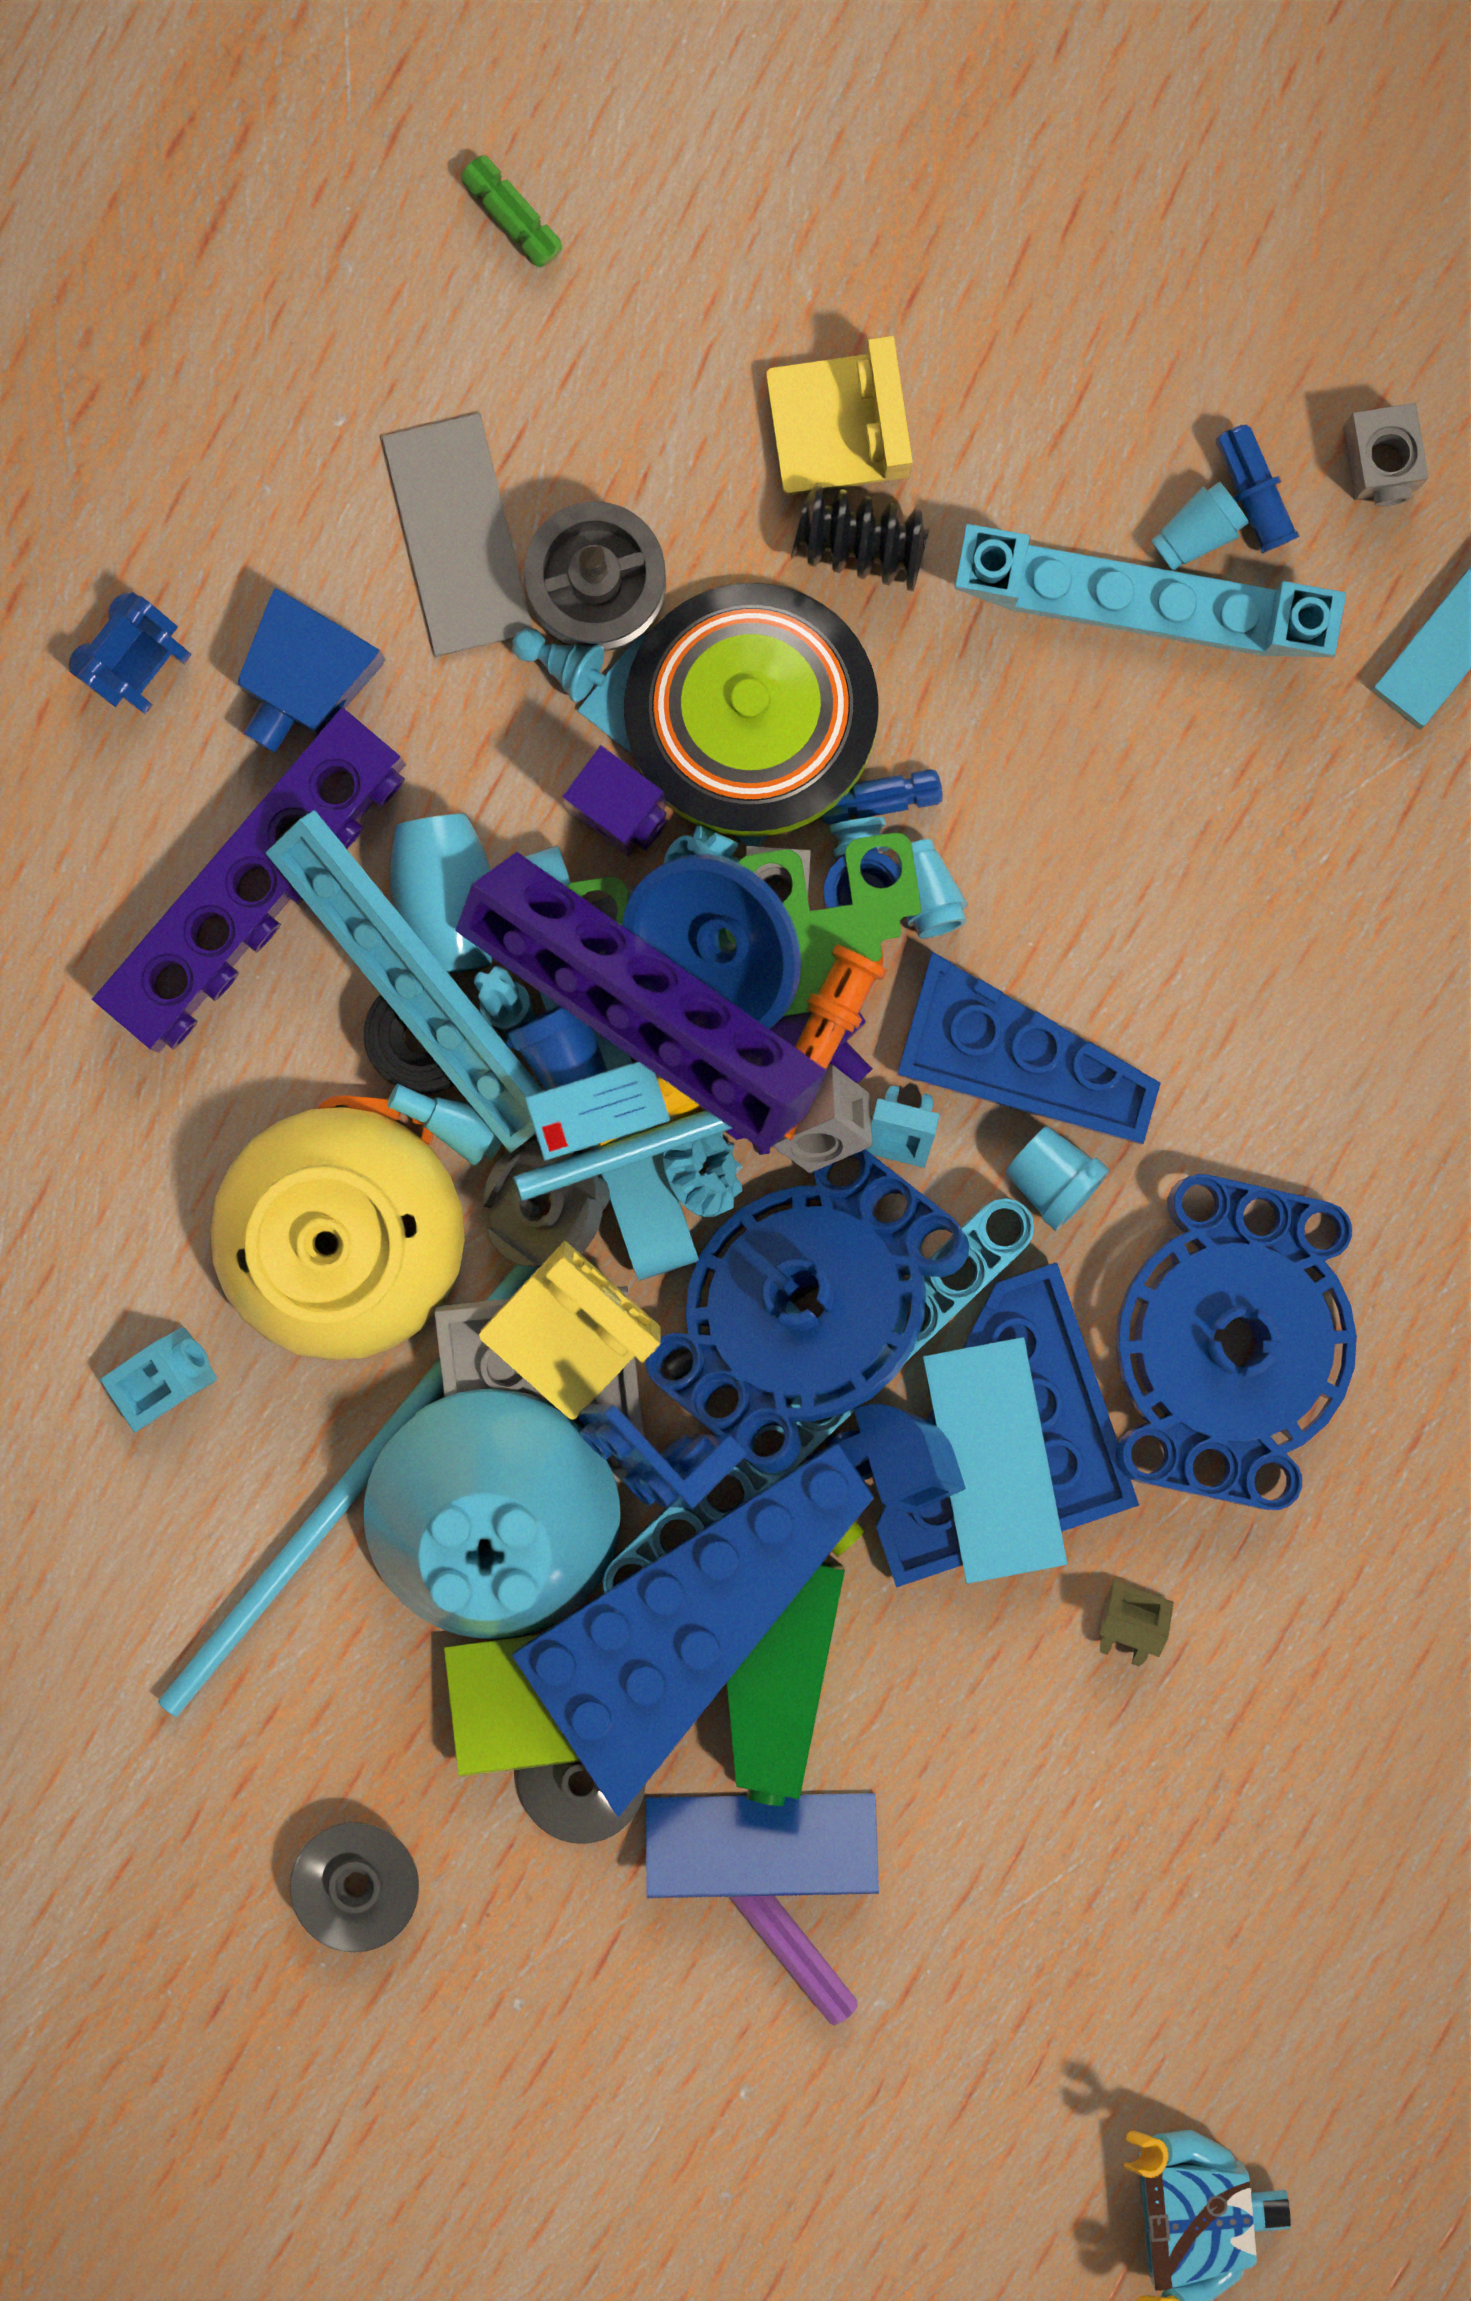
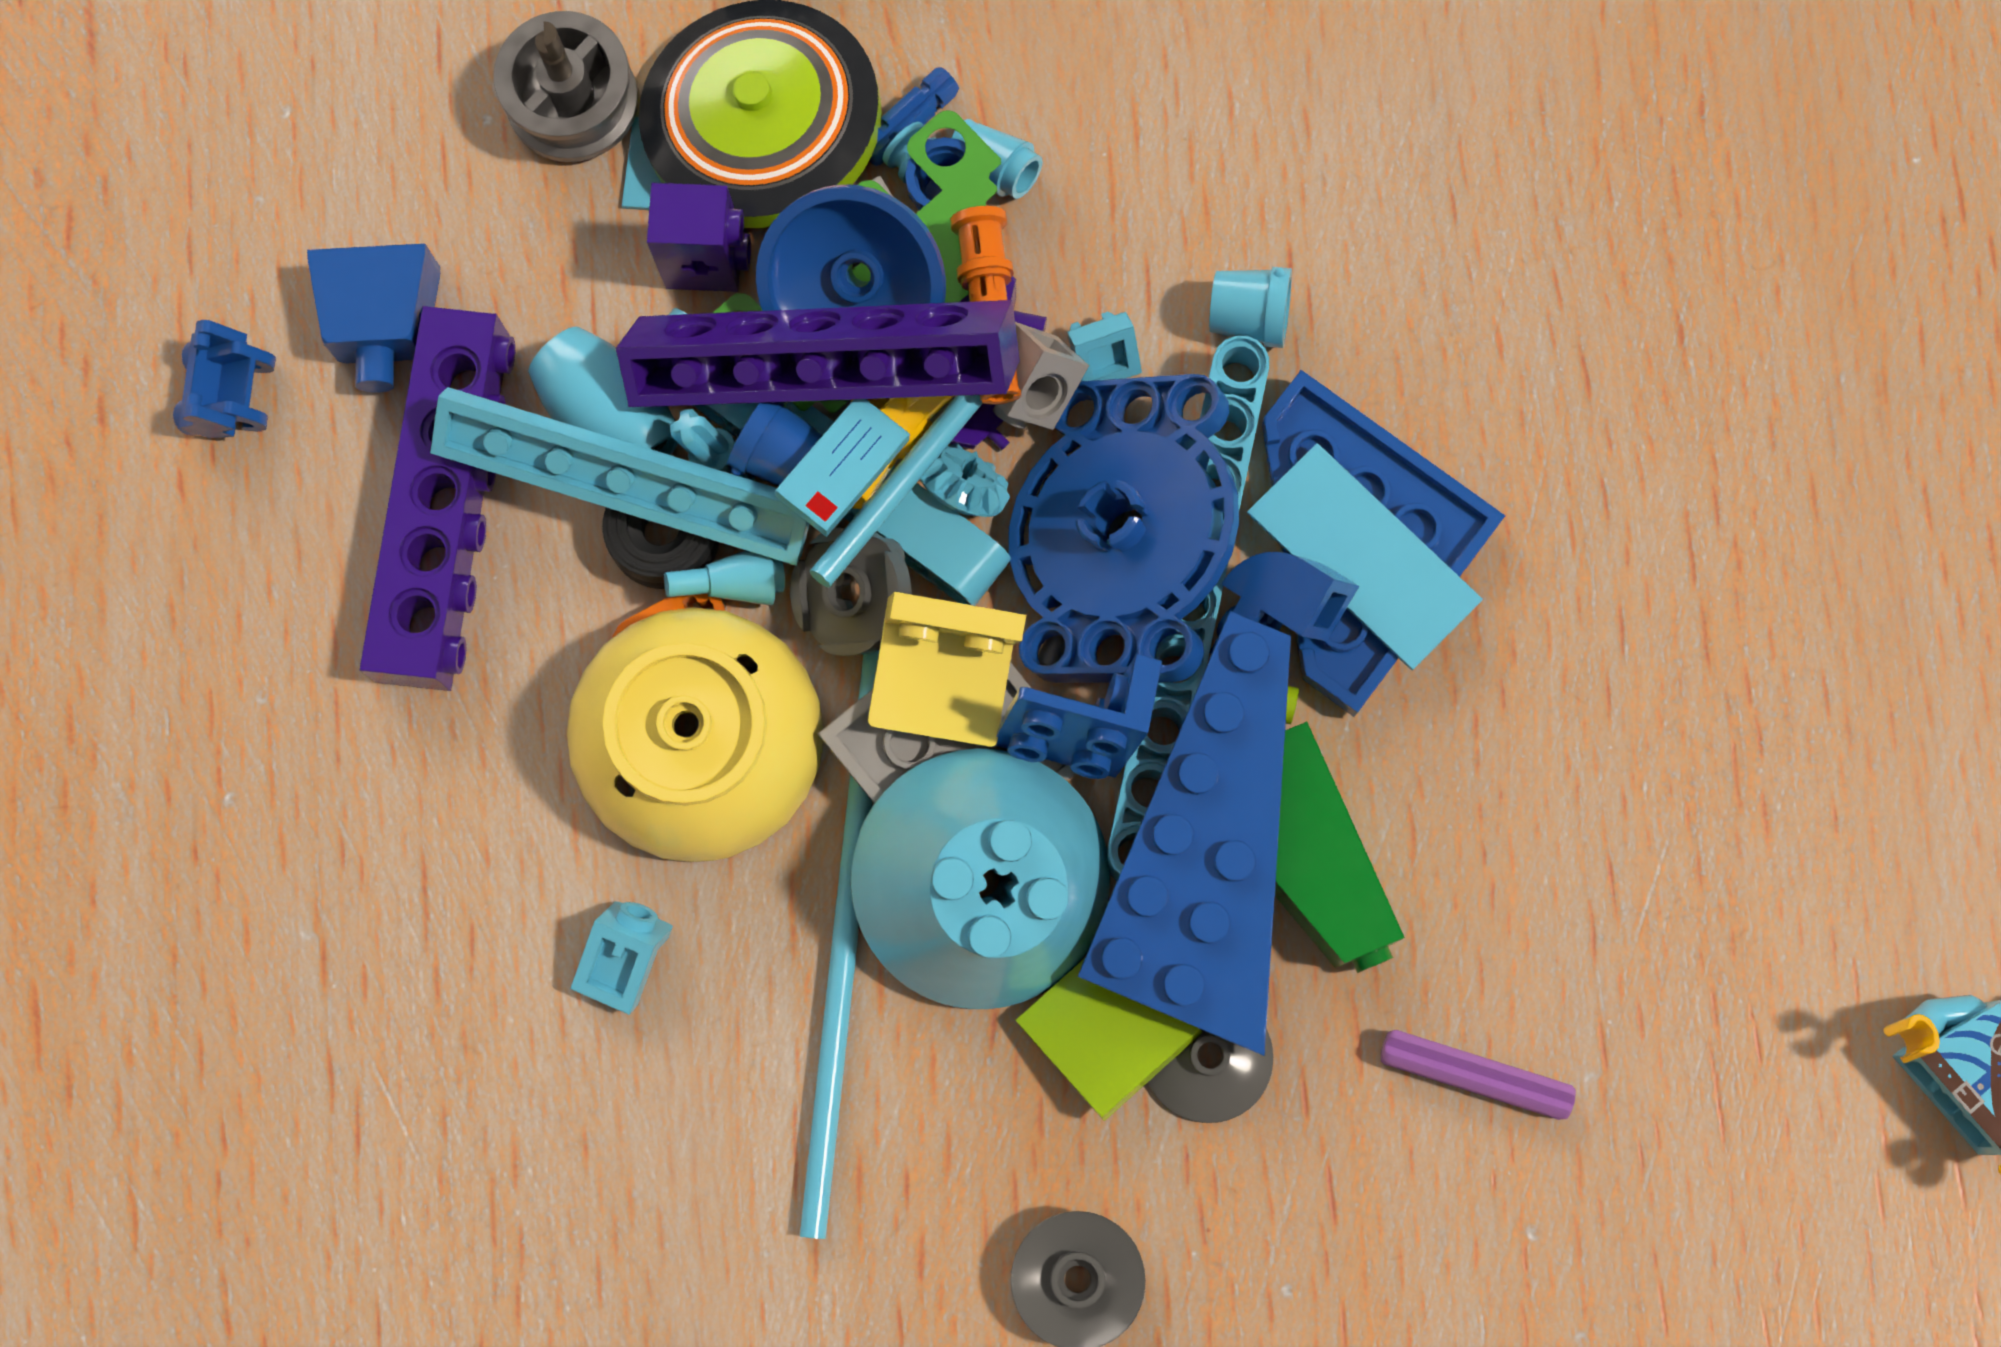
camera: 30 degrees left, 10 degrees down
(457, 534) = (438, 137): light grey piece -> none
(572, 665) = (593, 169): medium azure piece -> none
(761, 1849) = (1398, 1007): piece -> none
(1002, 1052) = (1140, 243): blue wing -> none
(1135, 1620) = (1567, 610): olive tile -> none
(1187, 1372) = (1481, 387): blue piece -> none

